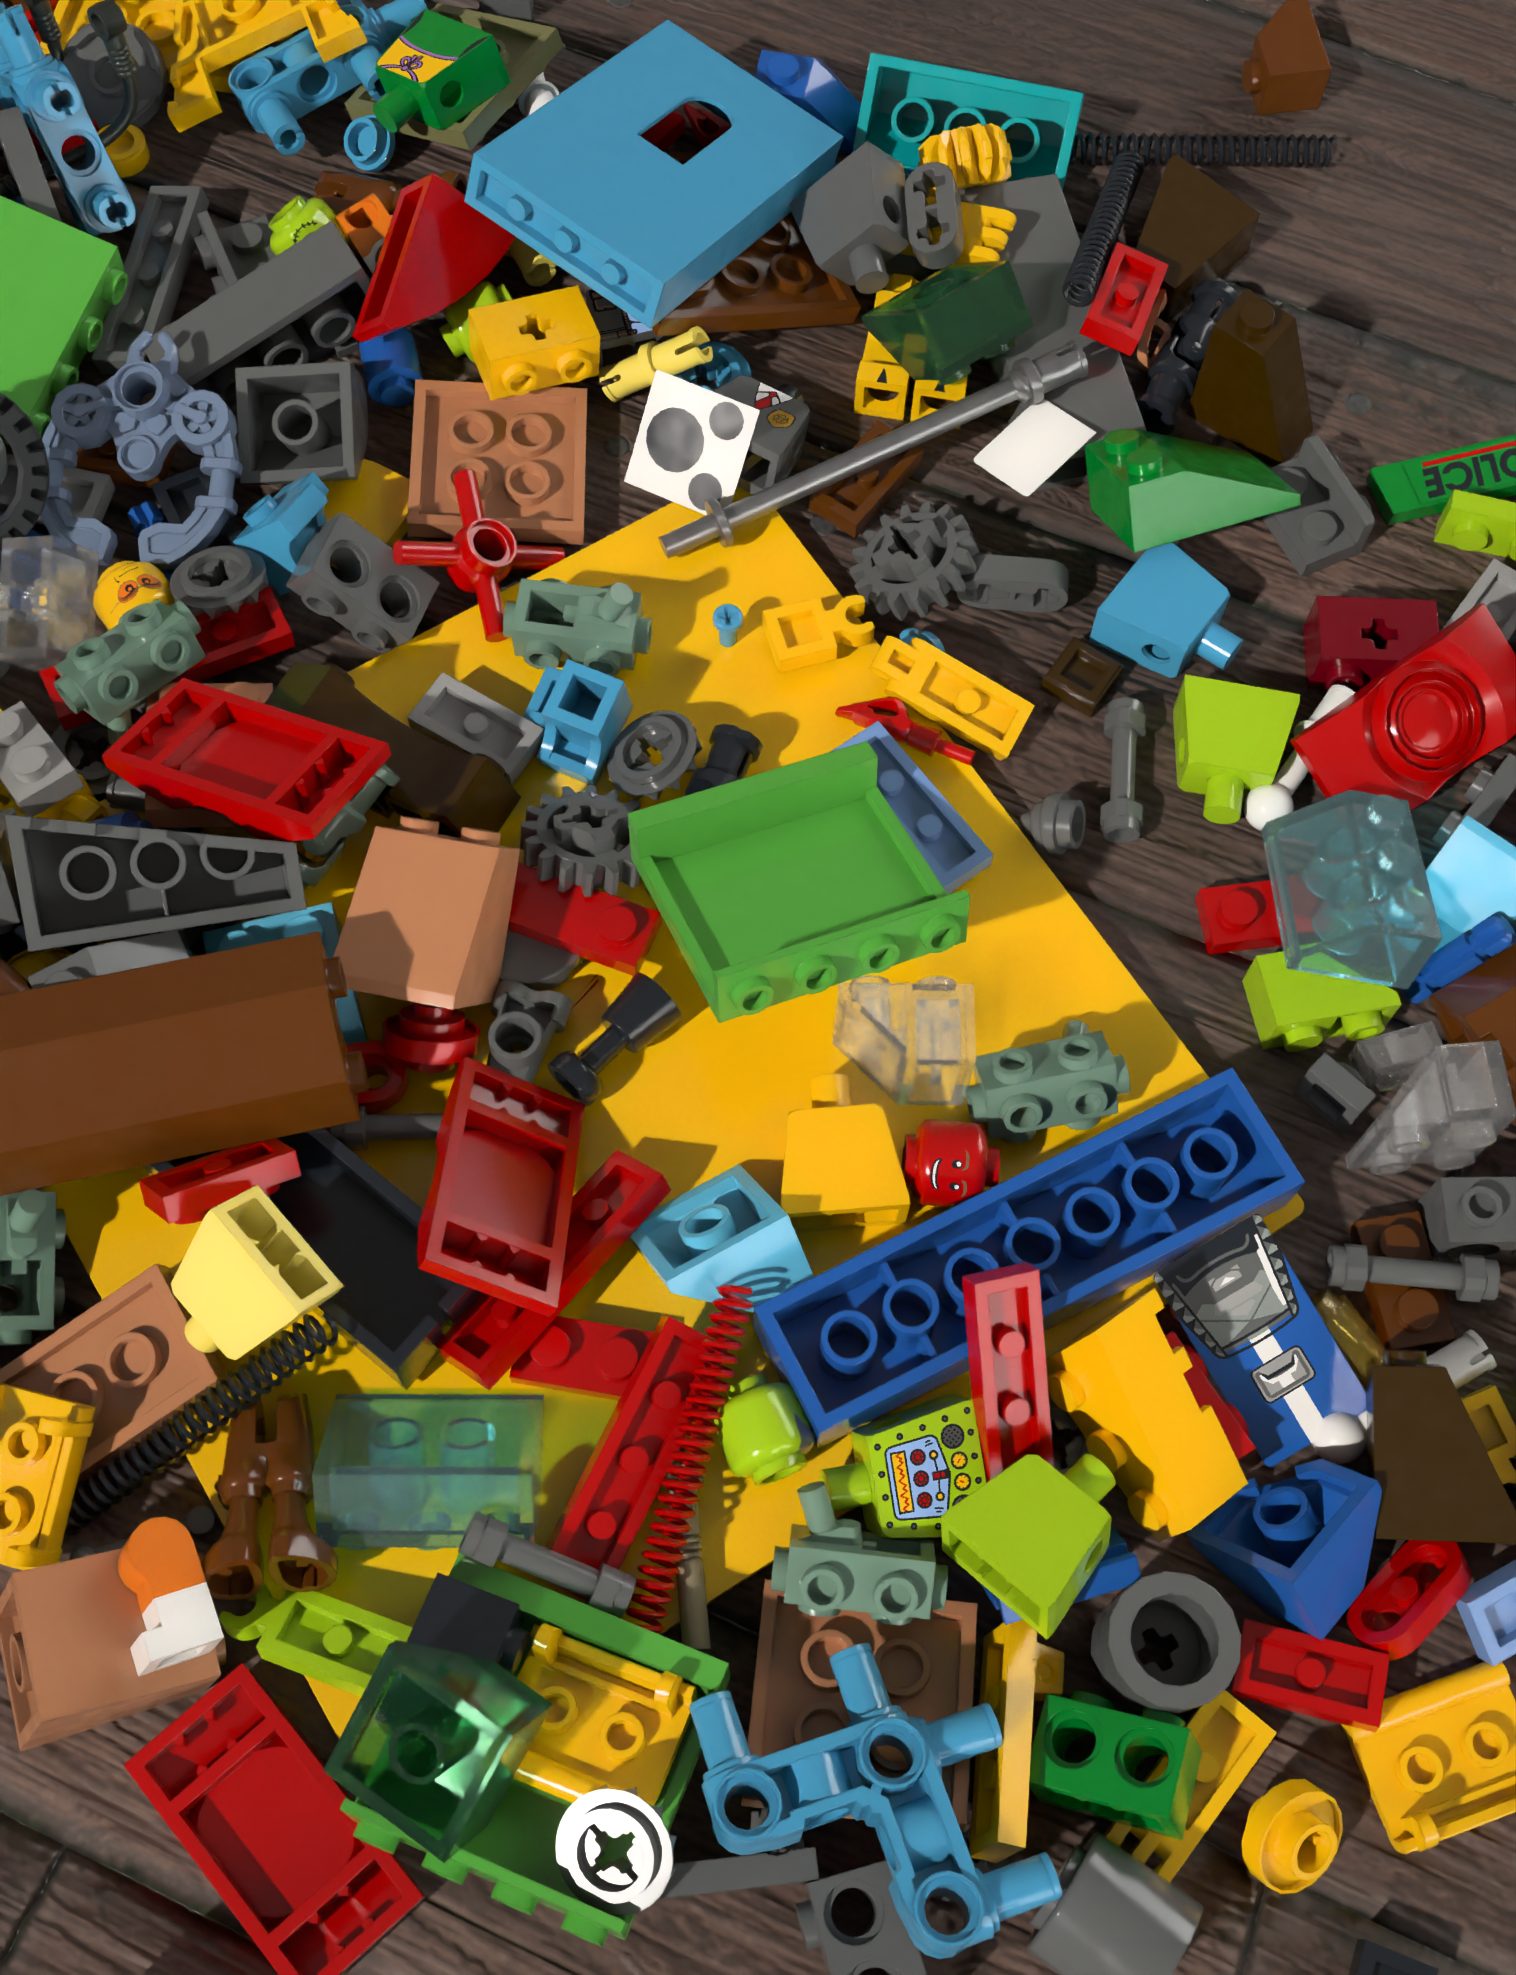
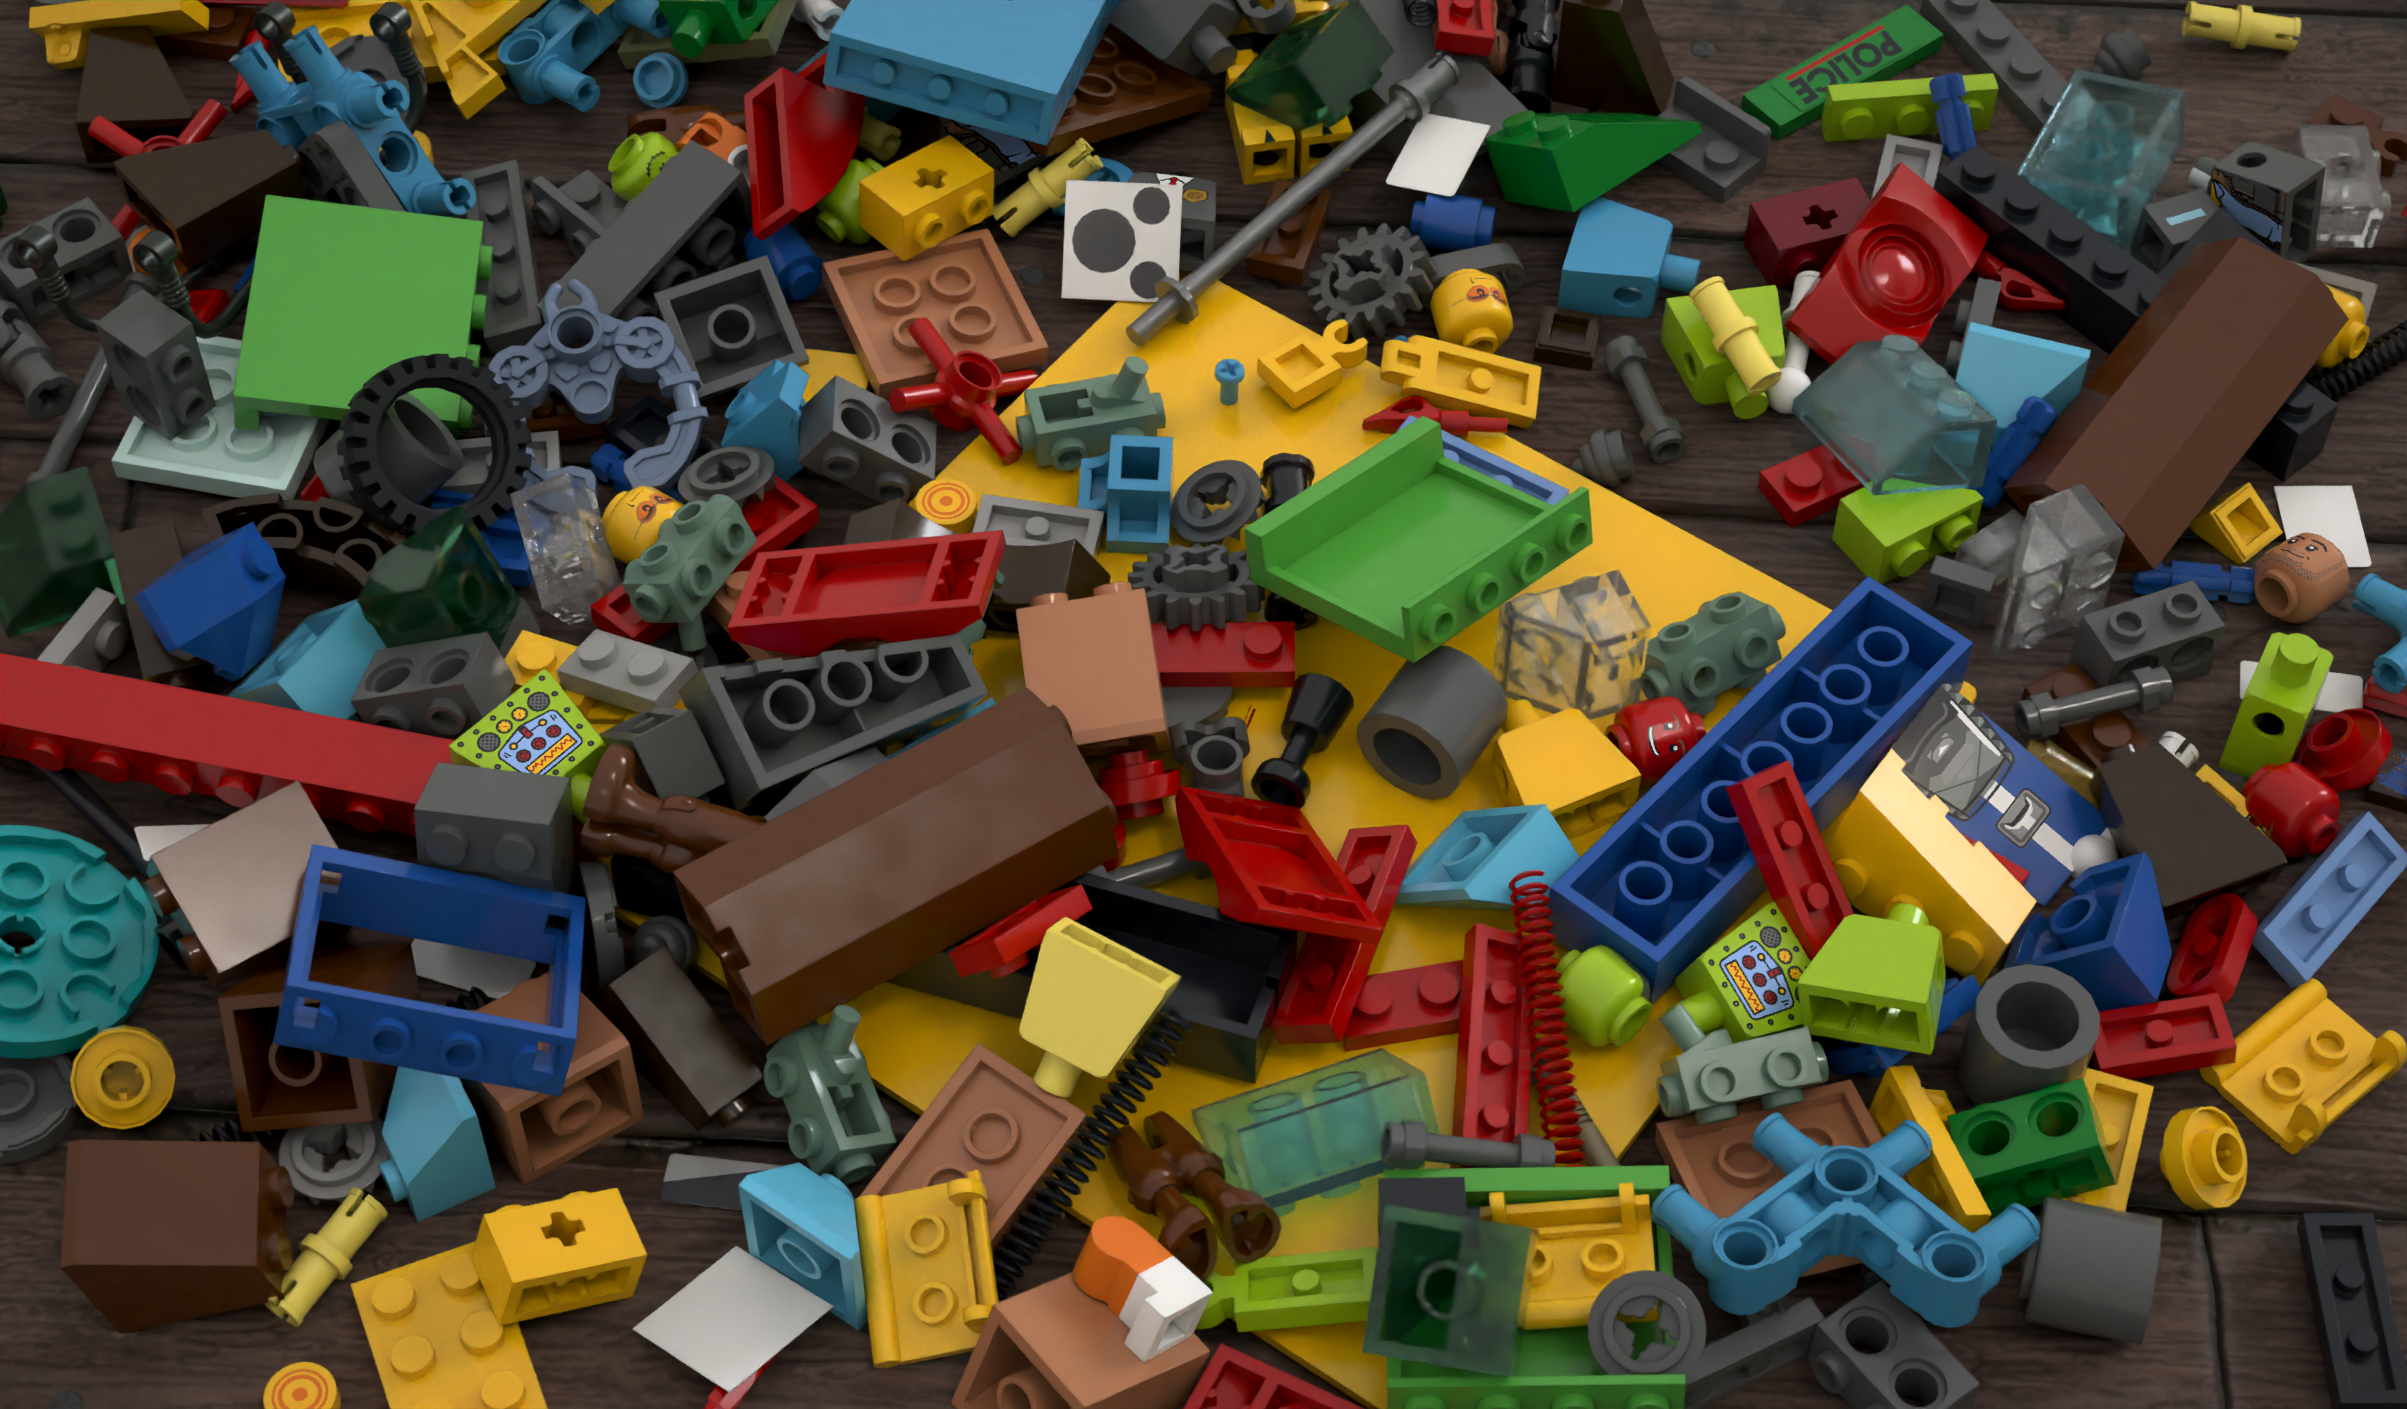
camera: 20 degrees left, 15 degrees down
(410, 670) = (948, 504): none -> yellow tile
(740, 1072) = (1432, 722): none -> dark grey piece
(994, 625) = (1472, 310): none -> yellow head
(1024, 522) = (1453, 222): none -> blue brick
(1229, 742) = (1735, 335): none -> light yellow pin

